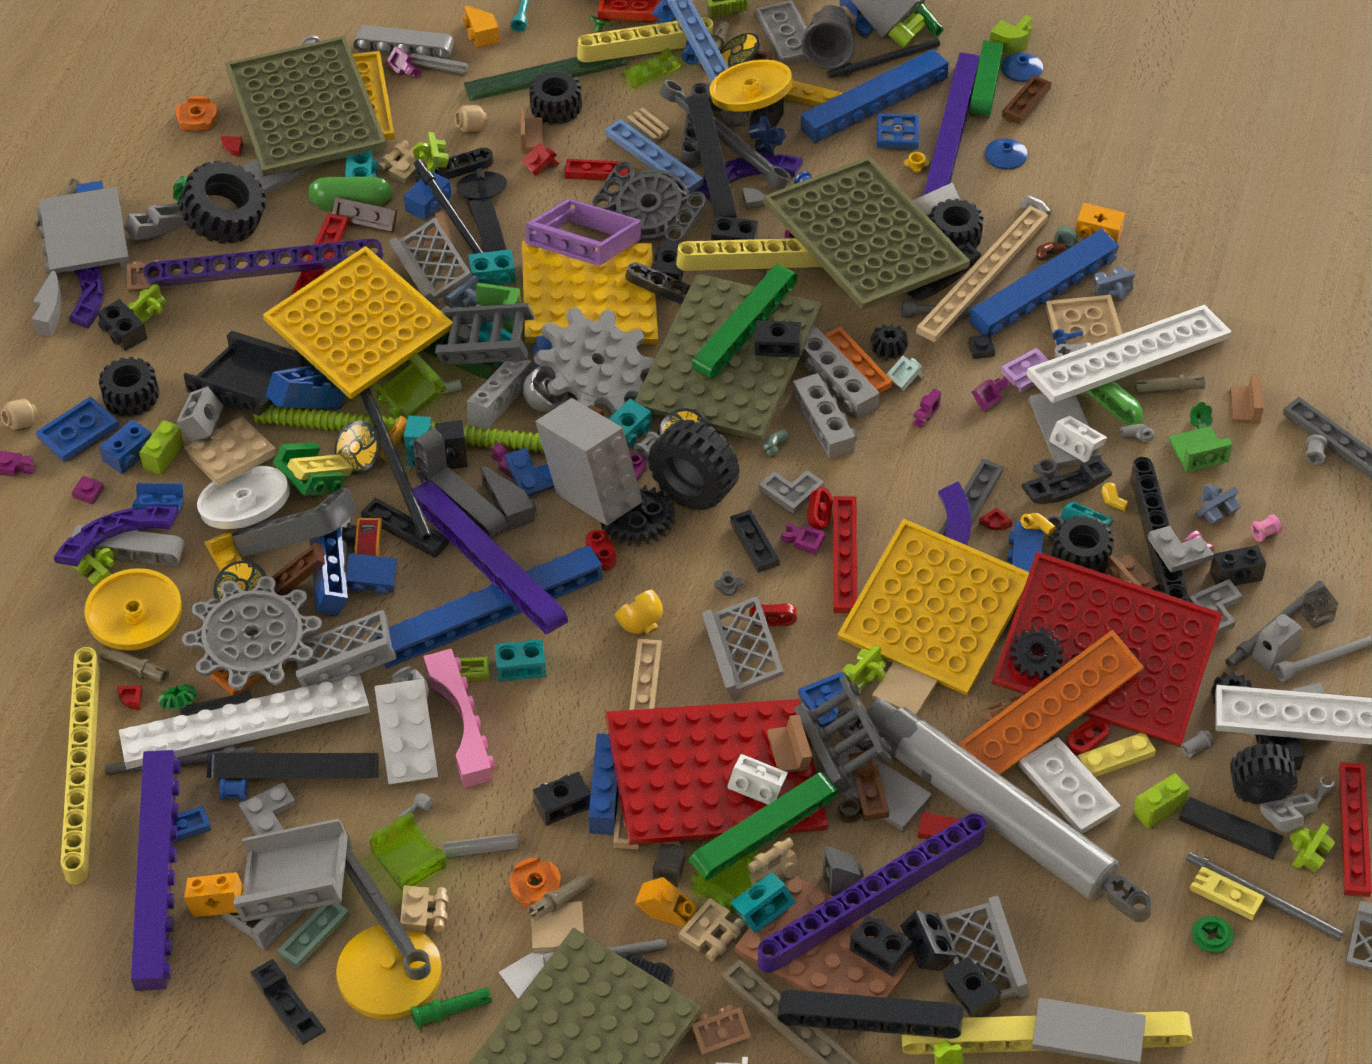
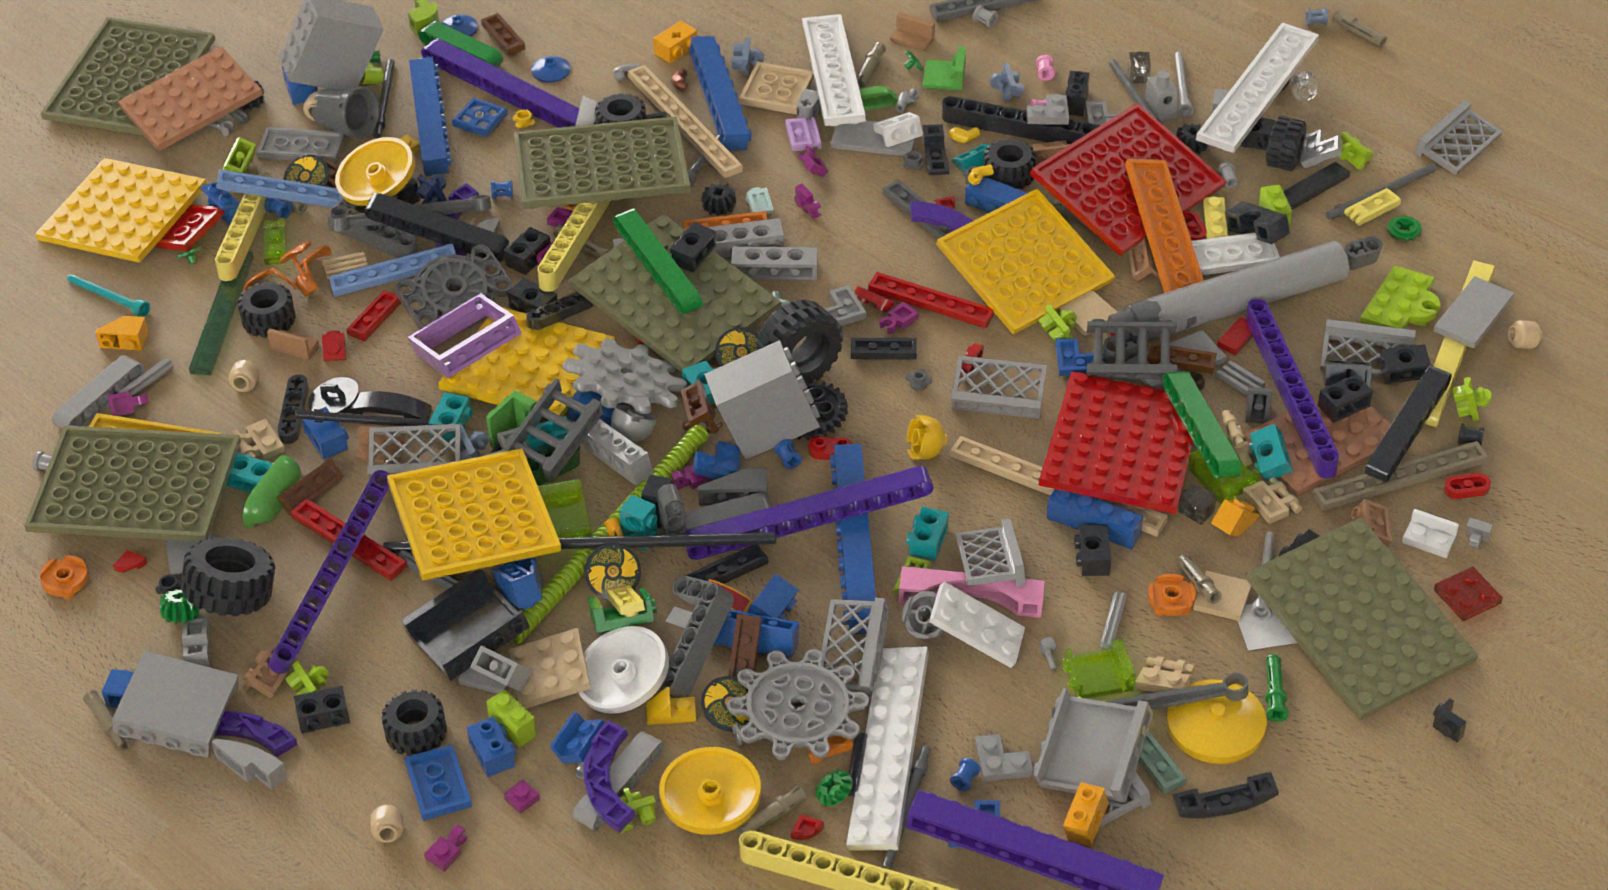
camera: 65 degrees left, 5 degrees down
(292, 765) = (963, 722): black beam -> none
(432, 152) = (275, 411): lime hips -> none
(508, 727) = (1007, 552): none -> light grey fence
(571, 519) = (788, 454): none -> blue bush
(603, 106) = (304, 280): none -> orange plant
(756, 779) = (1153, 412): white bracket -> none
(790, 746) = (1125, 383): medium nougat panel -> none
(884, 834) = (1242, 376): none -> light grey tile
(981, 346) = (757, 152): black plate -> none
(1036, 641) = (1120, 211): black gear -> none
(1061, 337) = (788, 97): blue hand -> none
(1066, 235) = (673, 65): sand green tile -> none
(1088, 964) = (1402, 300): none -> lime plate
(1121, 787) = (1268, 224): none -> black arch
(1354, 829) = (1341, 123): red plate -> none

